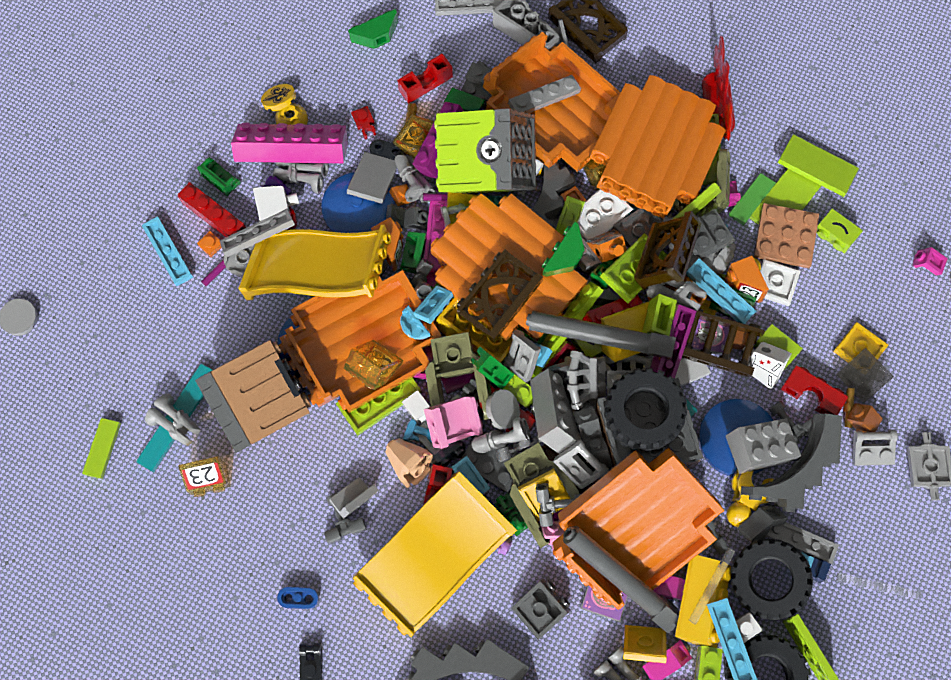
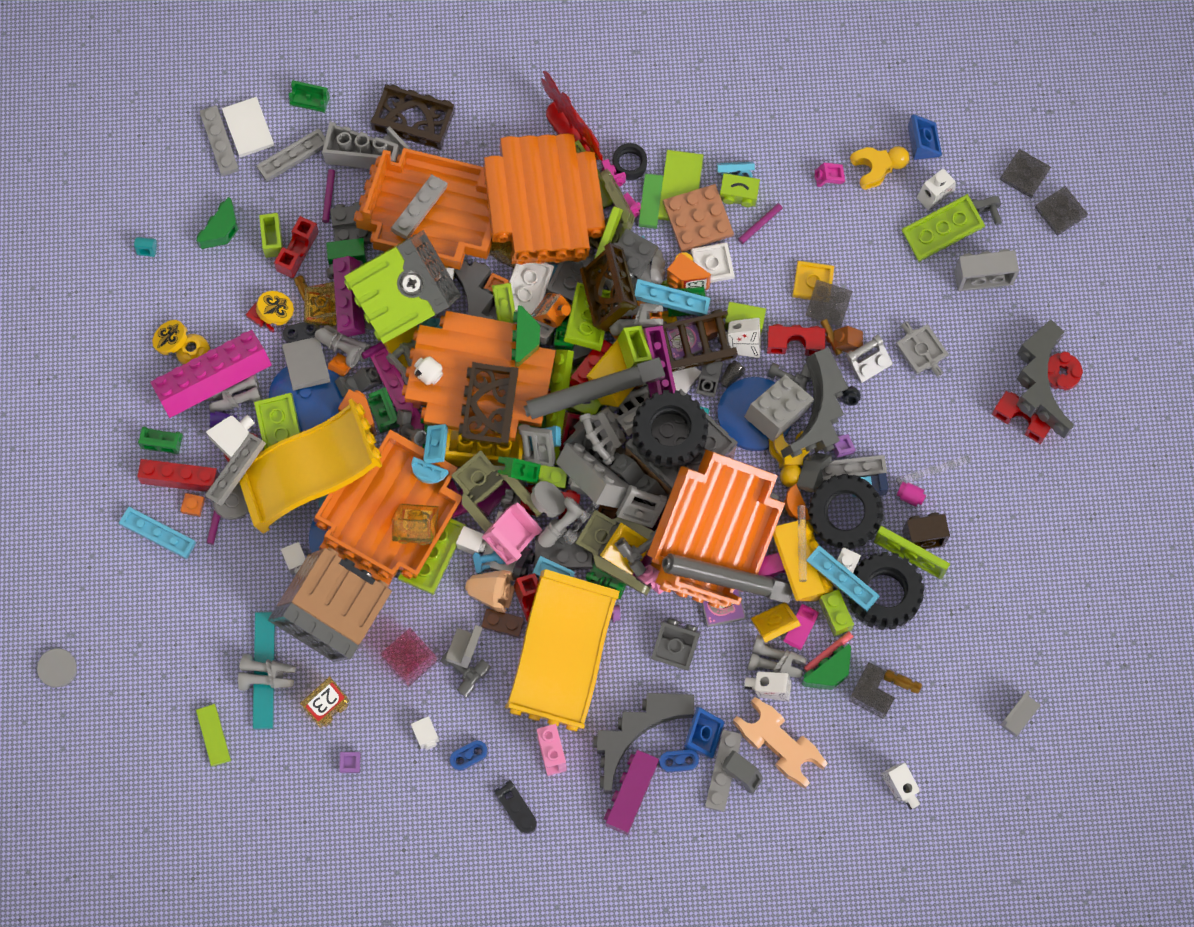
camera: 35 degrees left, 0 degrees up
(195, 542) = (350, 762): none -> medium lavender plate
(261, 333) = (294, 557): none -> white brick
(273, 555) = (425, 733): none -> white brick
(300, 479) = (409, 657): none -> clear pink brick
(307, 15) = (145, 246): none -> teal brick
(320, 210) = (277, 418): none -> lime plate
(369, 639) = (551, 750): none -> bright pink panel
(377, 118) = (274, 307): none -> yellow tile
(401, 496) = (502, 623): none -> reddish brown plate
(411, 56) = (271, 234): none -> lime brick
(463, 236) = (428, 370): none -> white head
(479, 51) = (328, 196): none -> magenta bar
(713, 383) = (709, 379): none -> dark grey slope
(727, 539) = (794, 499): none -> orange tile
(735, 165) = (619, 178): none -> dark pink bracket
(737, 390) = (732, 373): none -> clear smoke cone
(757, 143) = (634, 149): none -> black tyre
(804, 516) = (844, 446): none -> medium lavender plate
(818, 165) = (690, 140): lime tile -> none
(837, 472) = (851, 396): none -> black plate
(840, 270) = (760, 223): none -> magenta bar
(840, 644) = (927, 531): none -> dark brown brick
(841, 207) = (742, 167): none -> medium azure plate
(844, 597) = (911, 494): none -> dark pink brick

